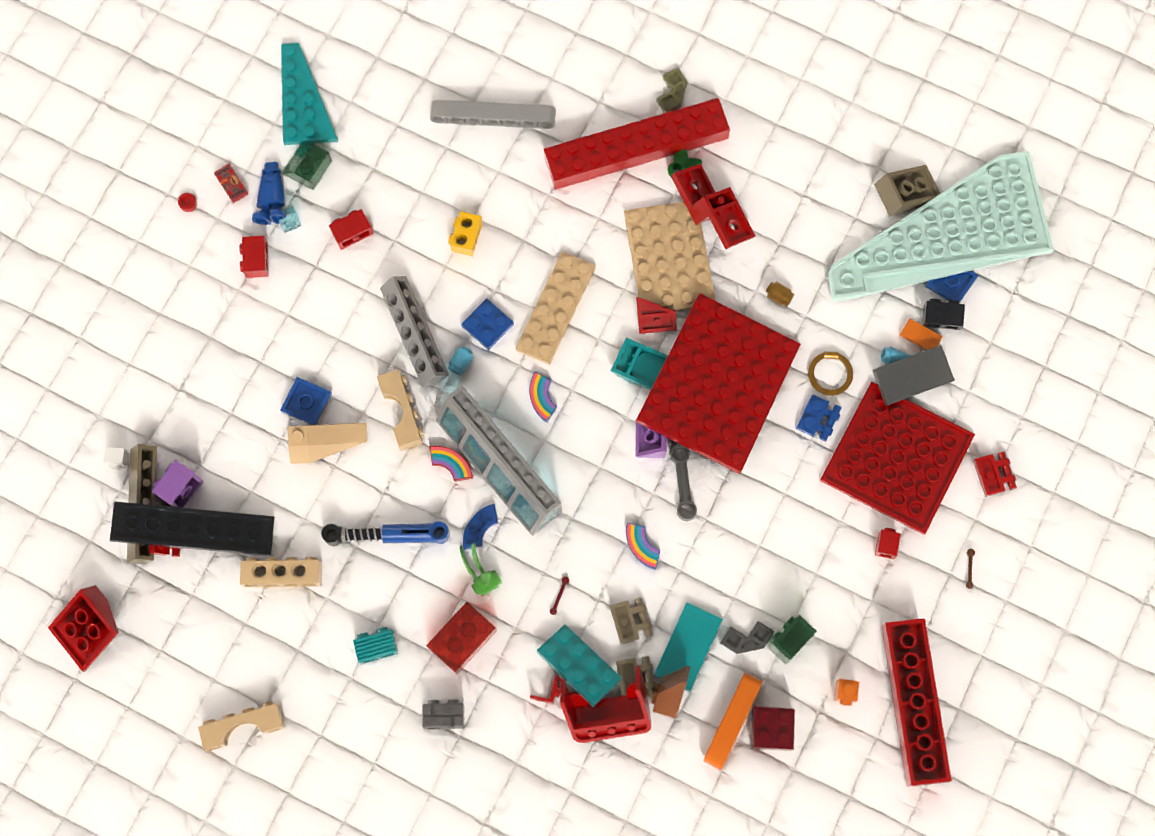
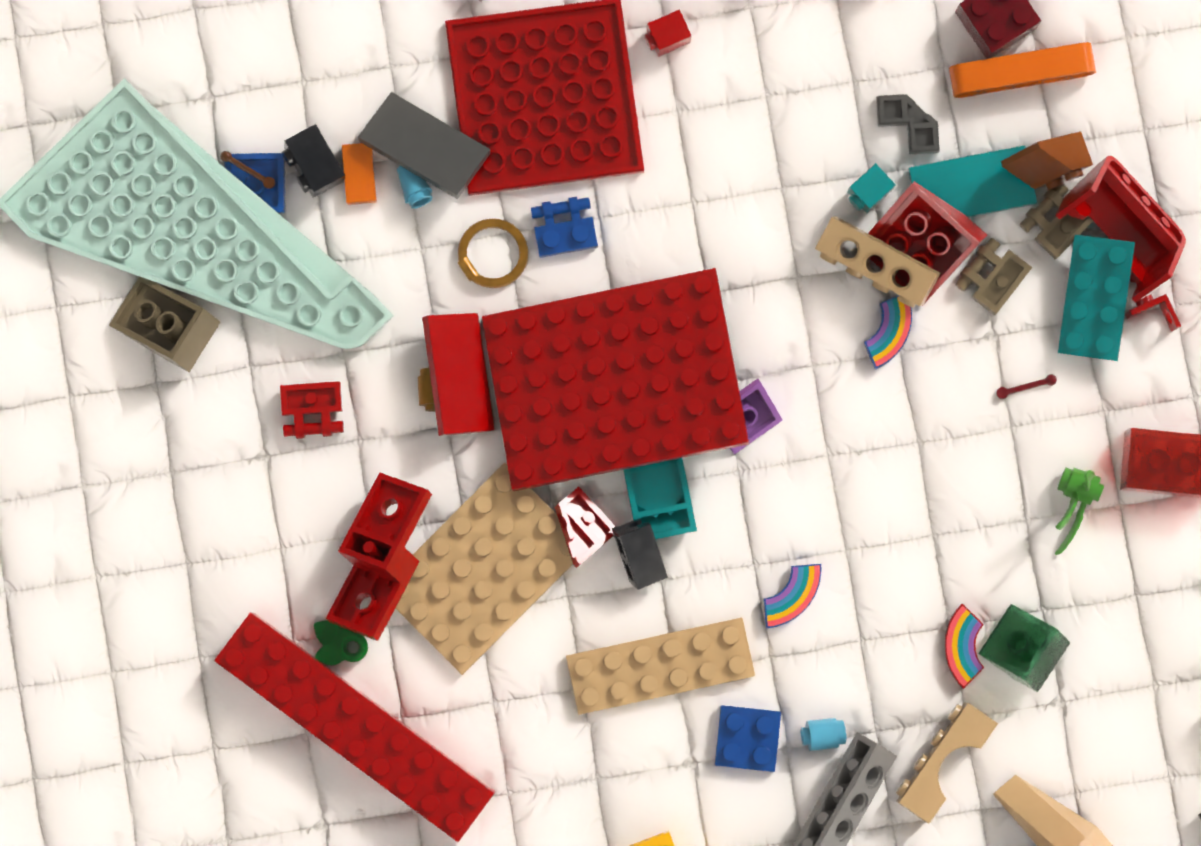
camera: 130 degrees left, 10 degrees up
(388, 533) = (1112, 653): piece -> none
(425, 490) = (1024, 647): none -> clear green slope
(478, 526) = (1018, 550): blue tile -> none
(498, 461) = (925, 580): light grey window -> none
(620, 332) = (639, 553): none -> black hinge
(677, 84) = (225, 735): olive tile -> none
(677, 595) = (928, 232): none -> red slope
(678, 570) = (921, 276): none -> tan brick
(683, 482) = (777, 333): dark grey piece -> none
(725, 587) = (870, 189): none -> teal brick
(778, 309) = (458, 374): none -> red tile
(792, 639) = (877, 64): clear green brick -> none
(816, 234) = (312, 399): none -> red plate
(947, 285) = (268, 182): none -> reddish brown hinge

